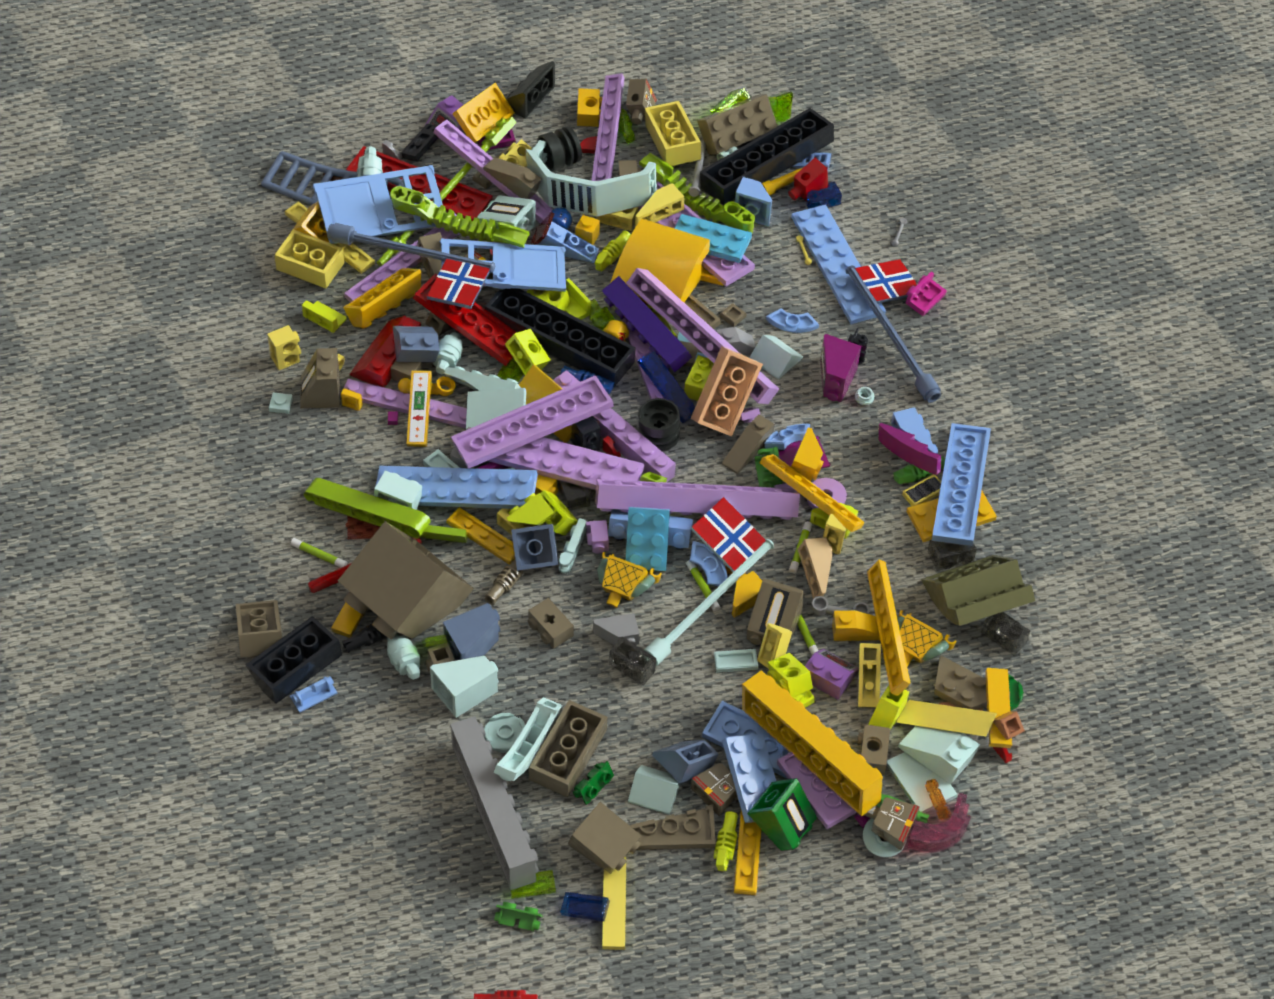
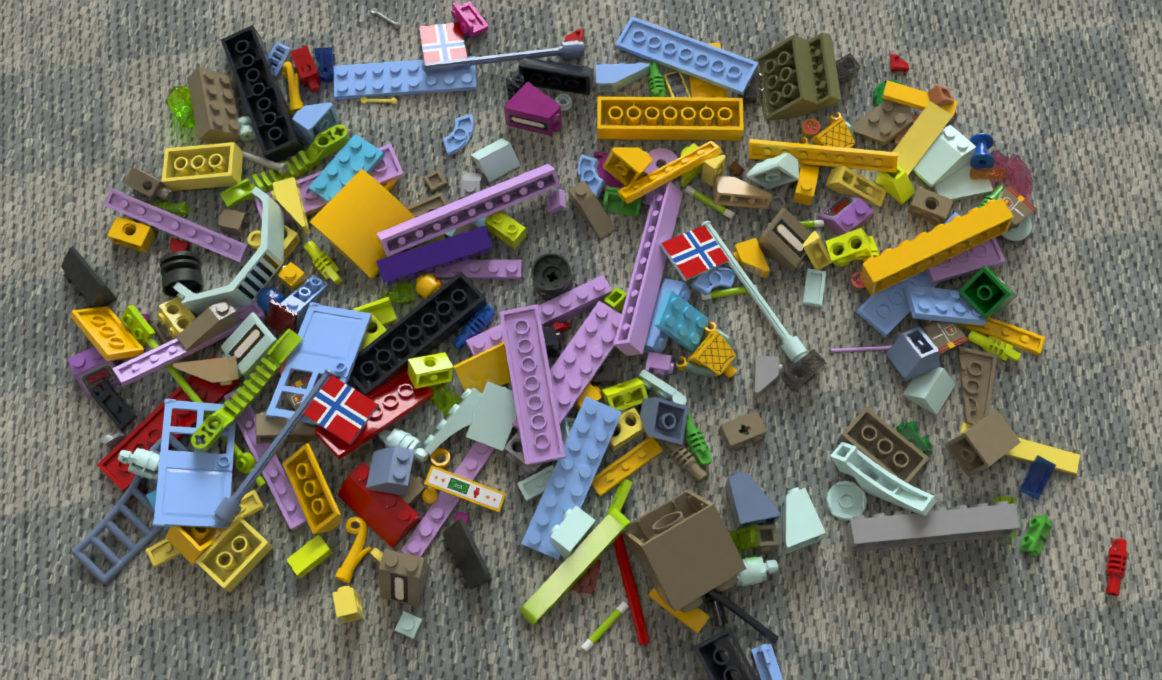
camera: 70 degrees left, 15 degrees up
(315, 343) = (356, 553): none -> yellow plant
(351, 399) = (430, 552): yellow tile -> none
(357, 426) = (466, 555): none -> pearl dark grey slope
(357, 660) = (743, 615): none -> black bar
(473, 194) = (212, 370): none -> tan slope
(527, 586) = (697, 443): none -> bright green hinge
(533, 512) = (633, 413): neon yellow slope -> none
(667, 385) = (508, 257): clear blue tile -> none
(679, 715) = (860, 349): none -> lavender axle
(726, 391) = (540, 207): light nougat slope -> none
(781, 105) = (201, 59): clear neon green slope -> none
(848, 562) = (736, 168): none -> reddish brown hinge
(852, 588) = (775, 171): none -> light aqua slope
(880, 487) = (670, 118): none -> yellow brick
(890, 377) = (557, 75): none -> black slope
(912, 451) = (644, 81): magenta slope -> none
(929, 619) = (810, 127): none -> tile
(947, 391) = (577, 35): none -> red tile
(974, 786) = (982, 158): none -> blue piece
(1047, 691) = (898, 64): none -> red tile

